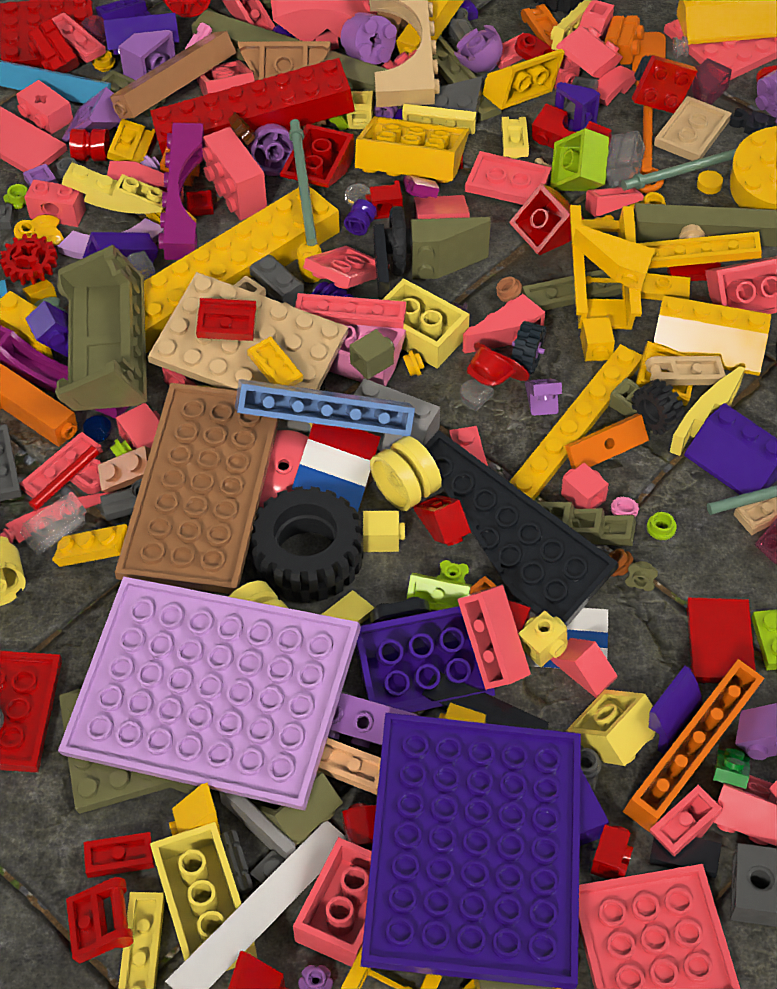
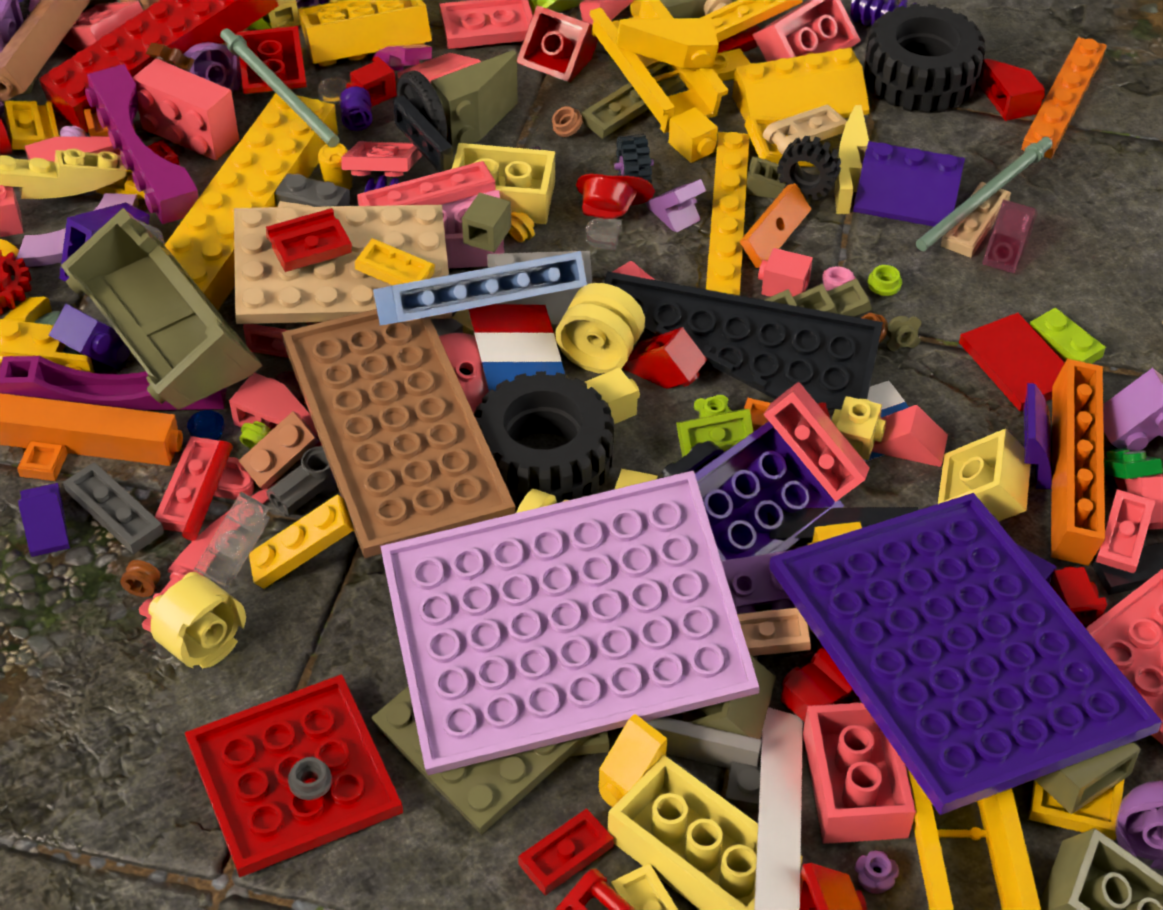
camera: 30 degrees left, 5 degrees down
(501, 327) = (591, 154): coral slope -> none

